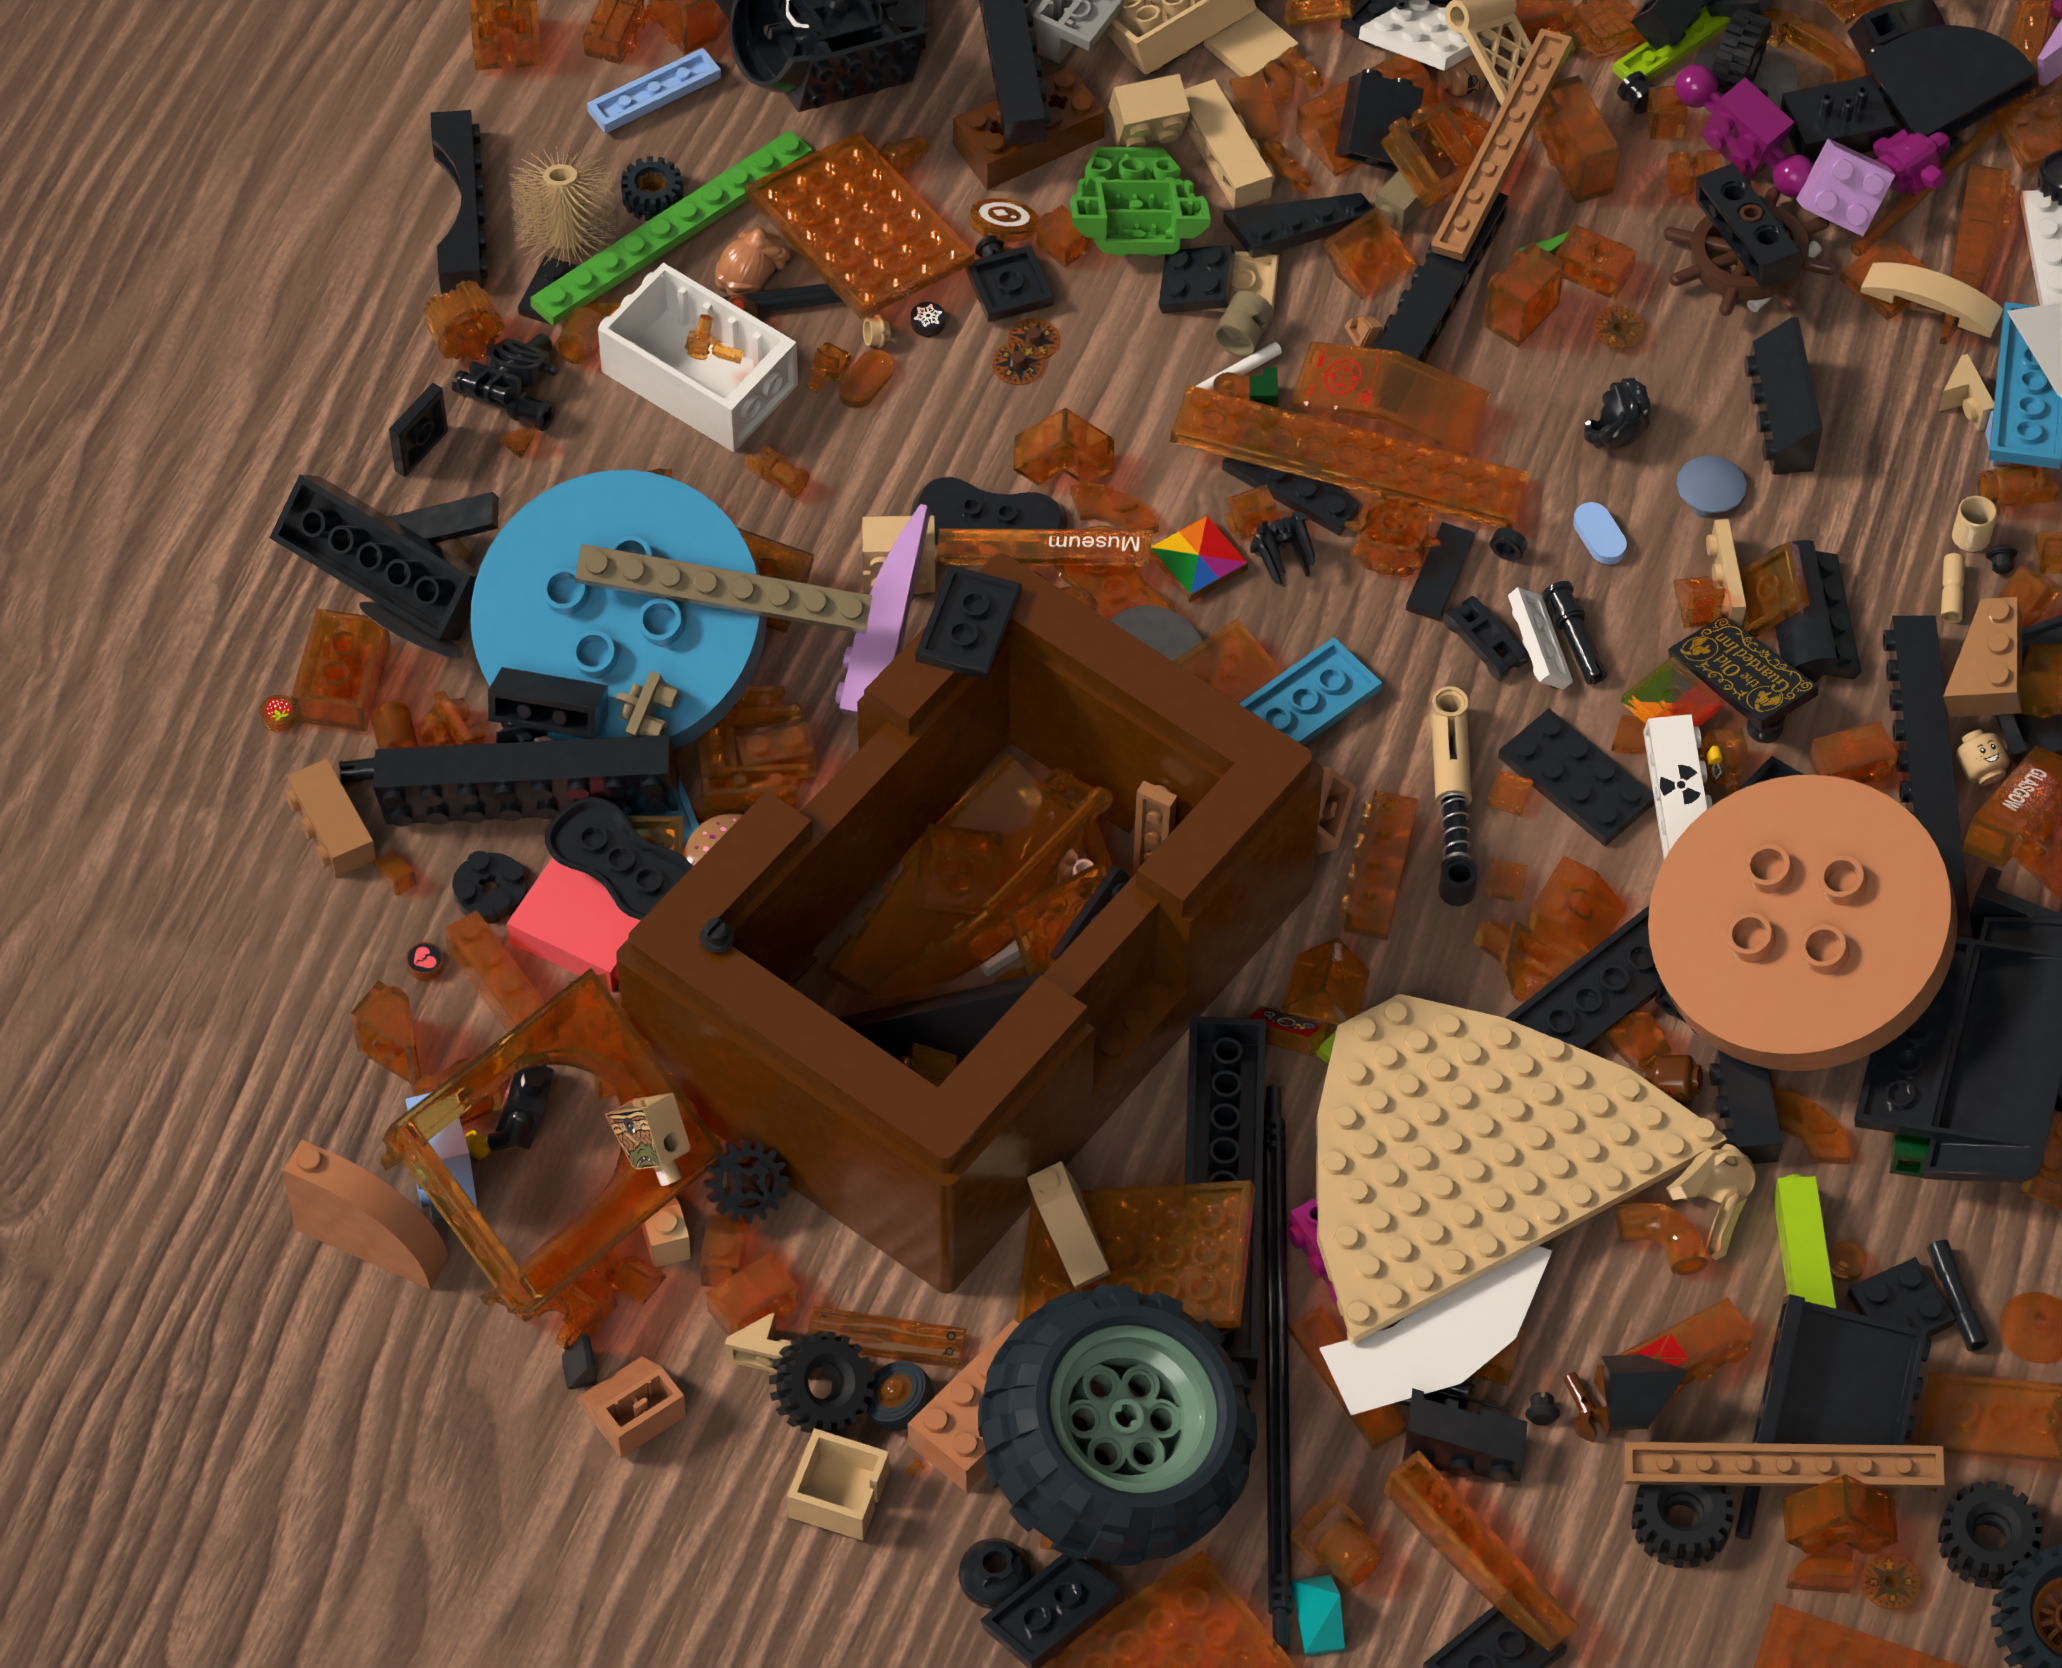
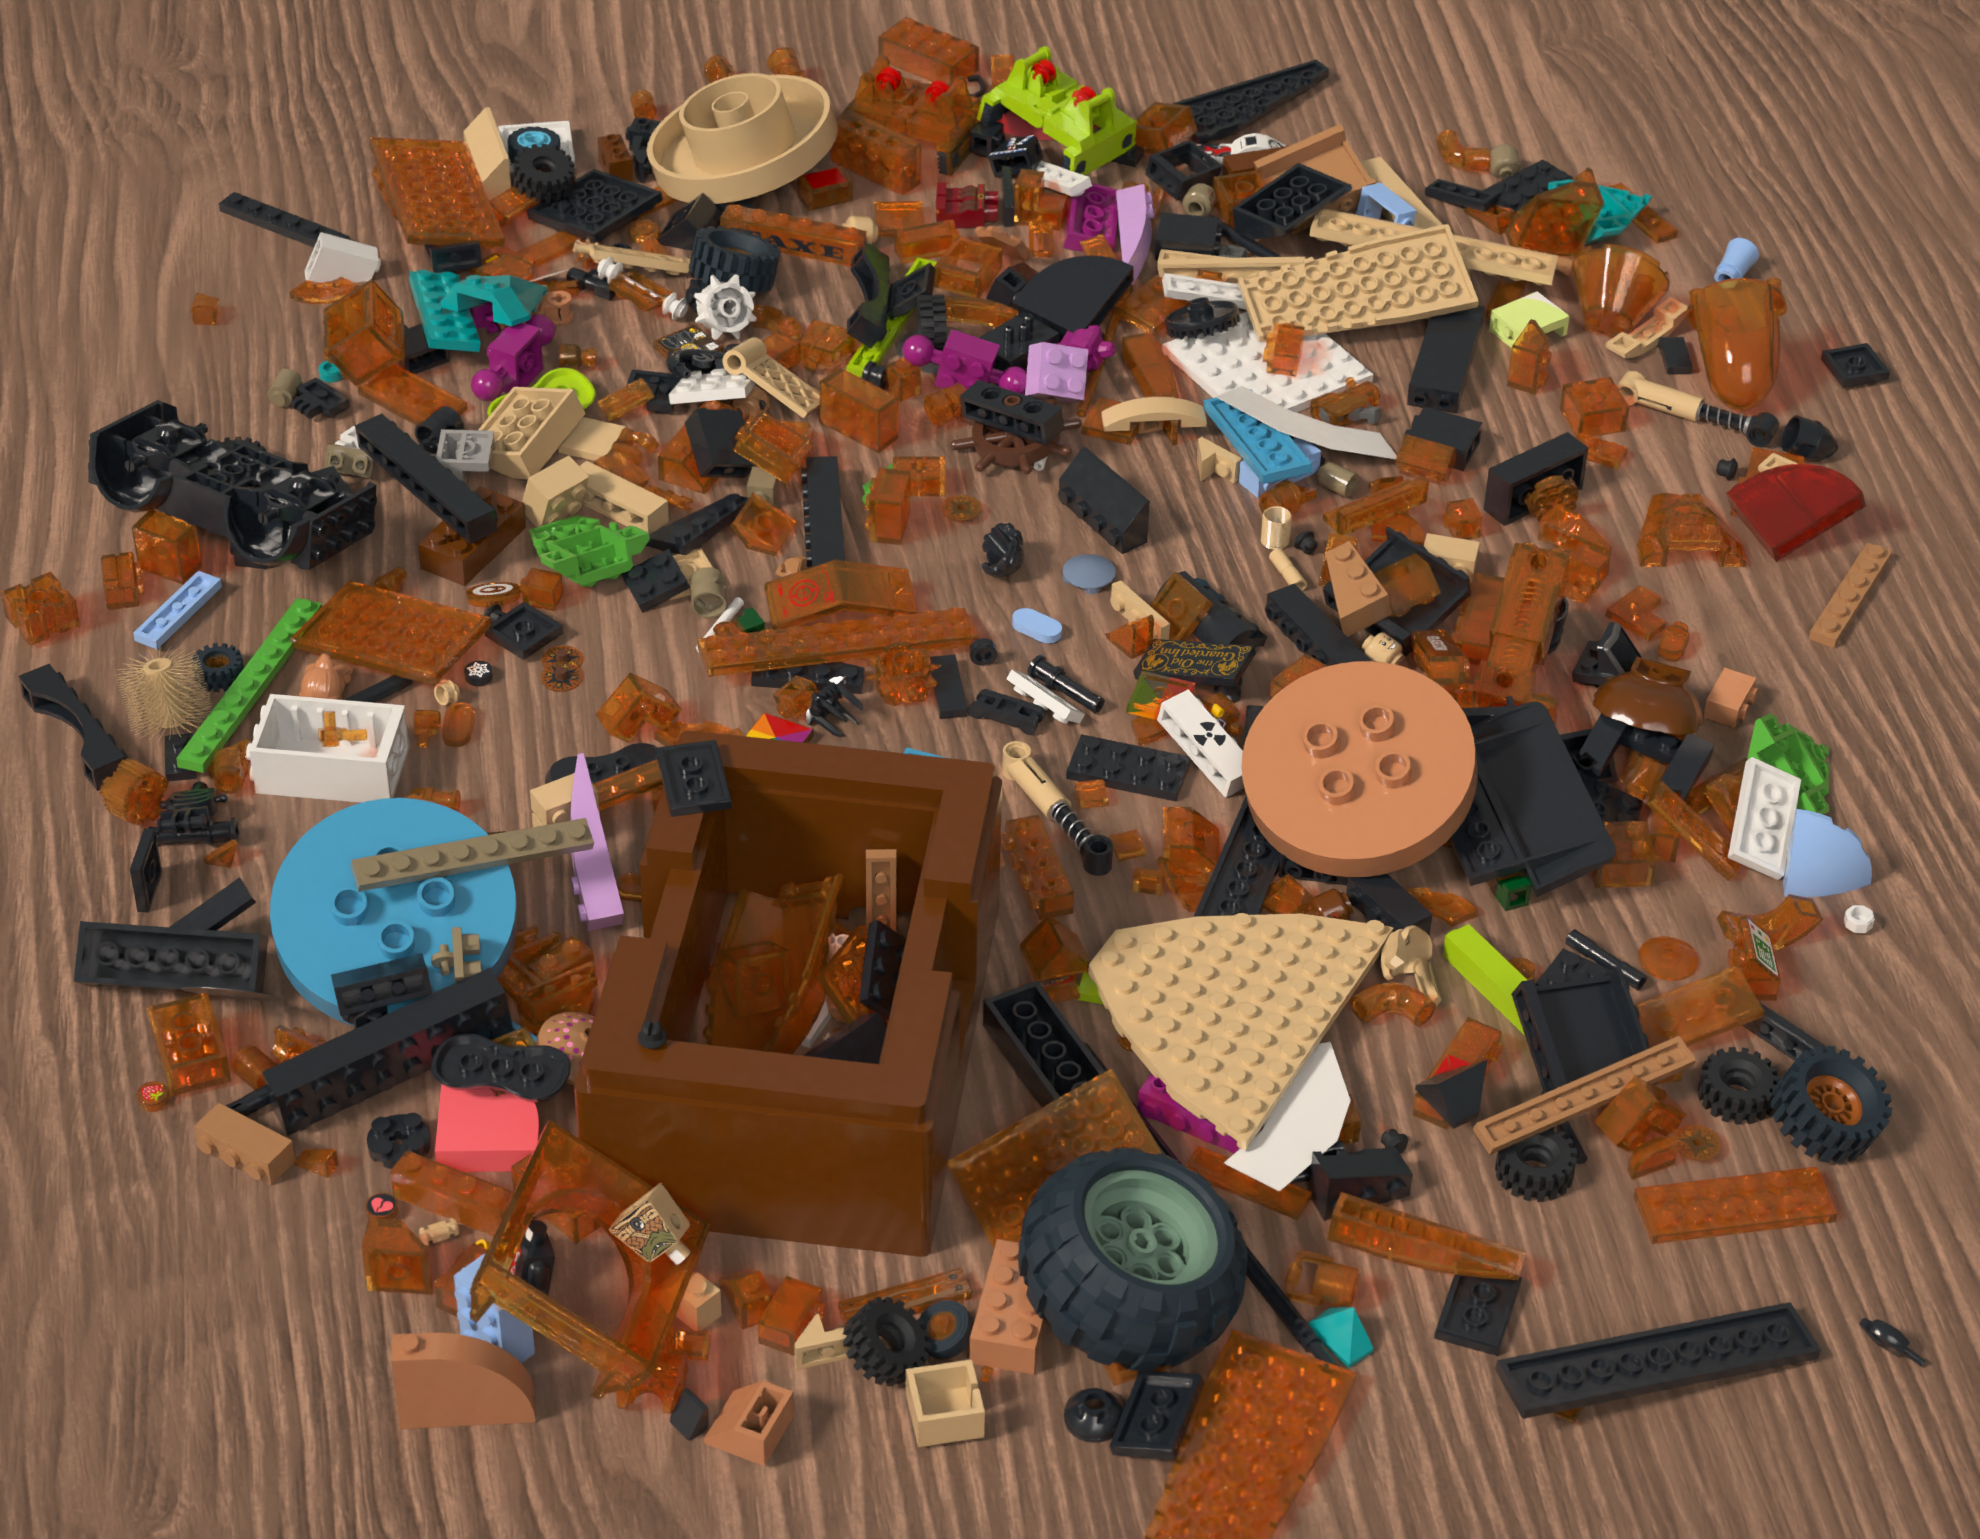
camera: 30 degrees left, 15 degrees down
(464, 1017) = (439, 1231): none -> tan piece
(735, 1191) = (737, 1236): black gear -> none
(1069, 1224) = (994, 1160): tan slope -> none
(1502, 145) = (818, 422): medium nougat plate -> none
(1586, 1408) = (1425, 1132): reddish brown bar -> none

